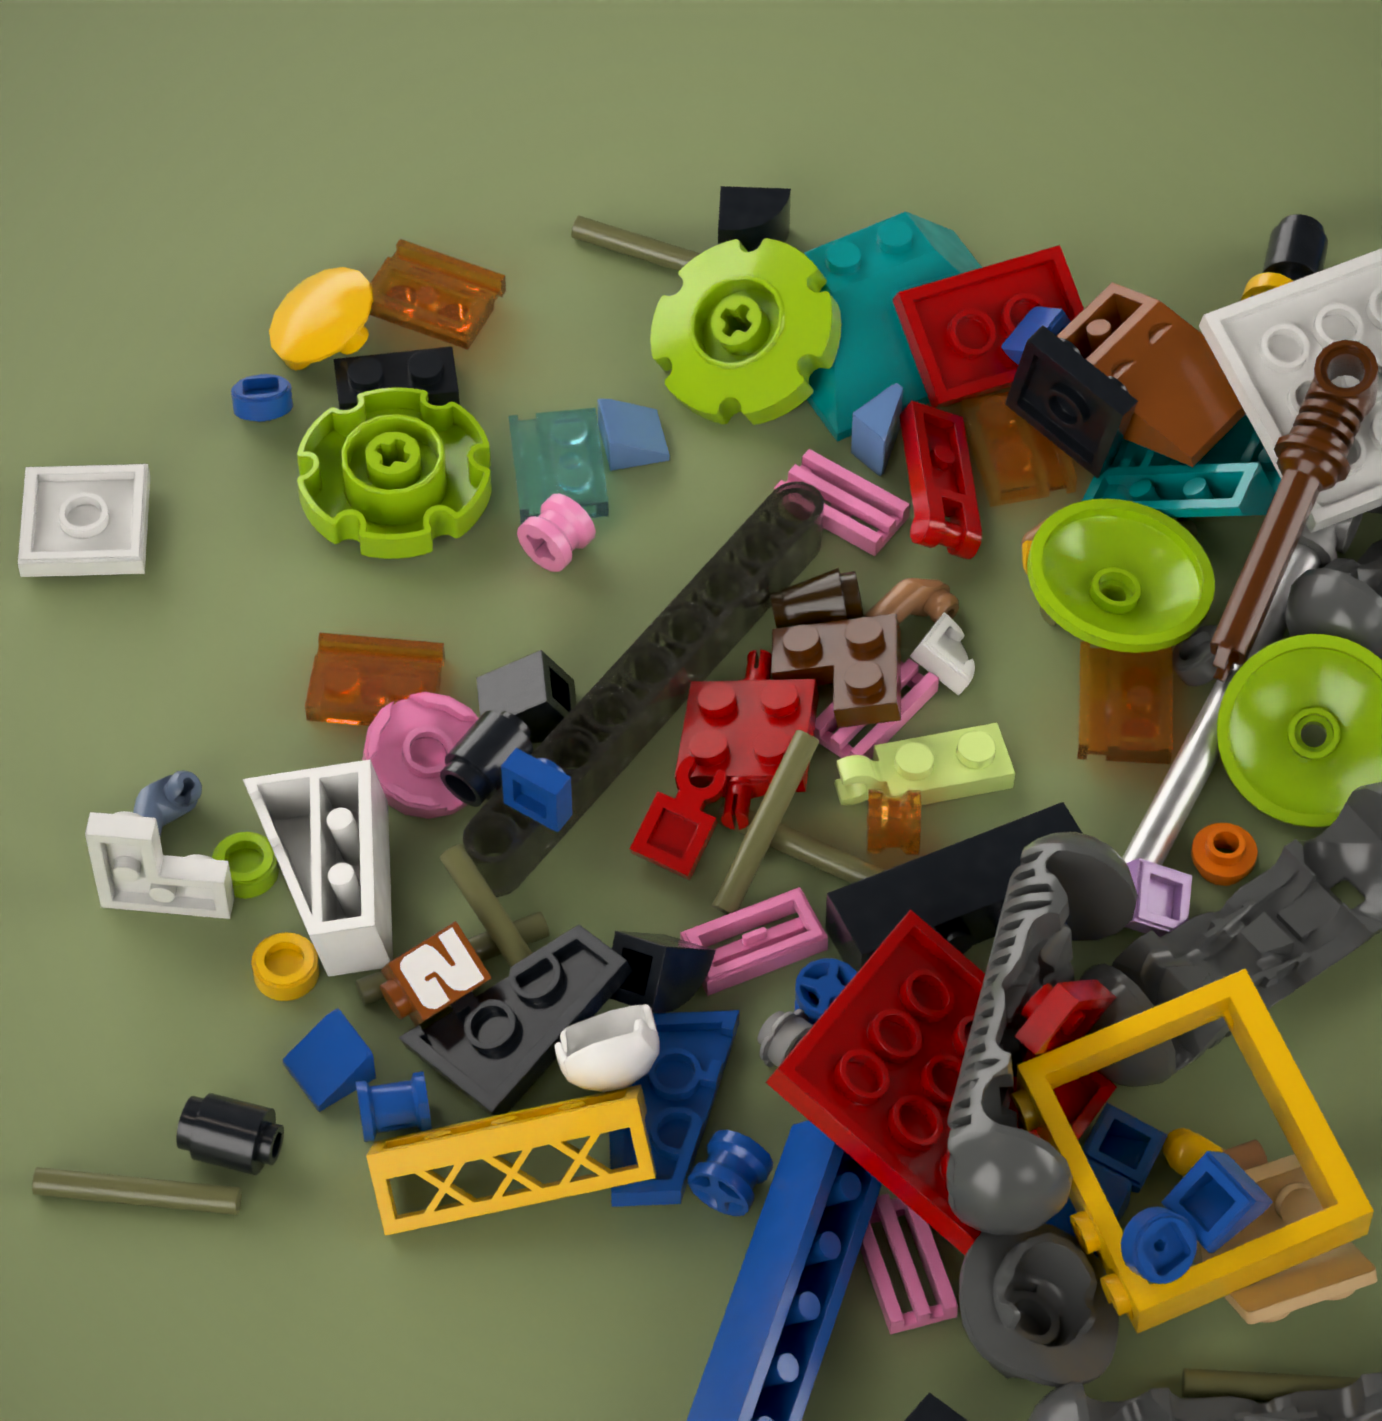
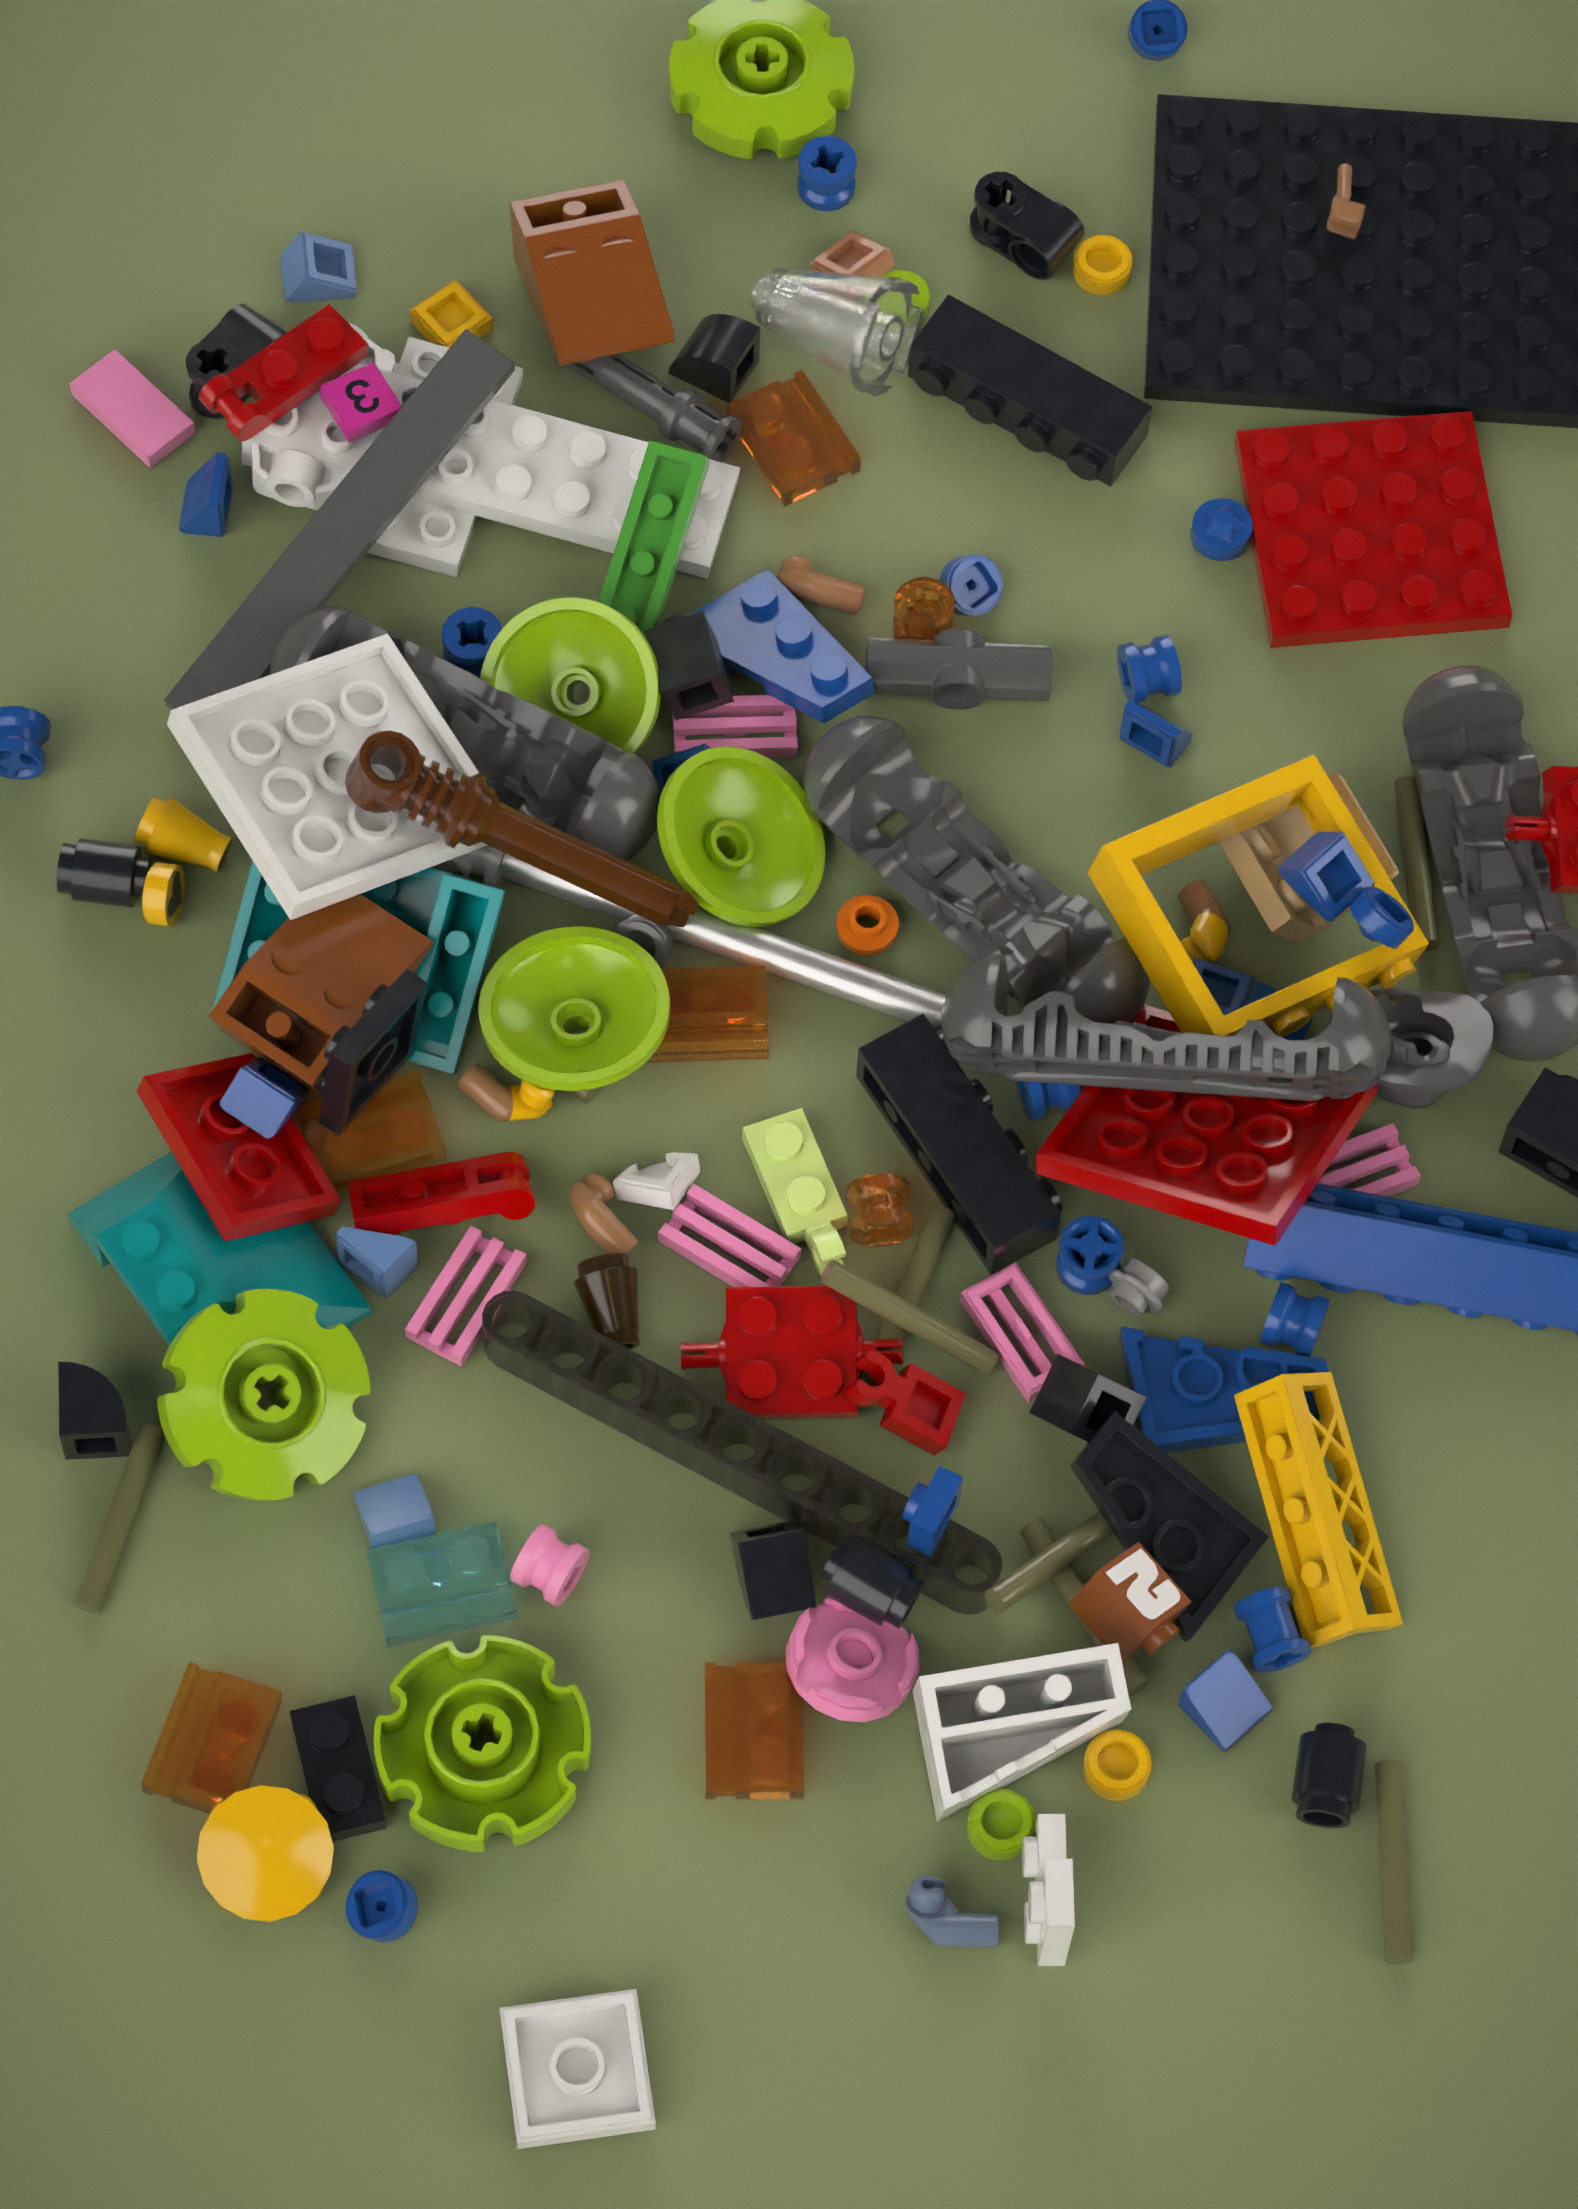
camera: 100 degrees left, 10 degrees up
(609, 1049) = (1208, 1419): white hair -> none
(852, 654) = (682, 1254): plate -> none
(1062, 1014) = (1159, 998): red plate -> none
(1161, 898) = (932, 971): lavender tile -> none

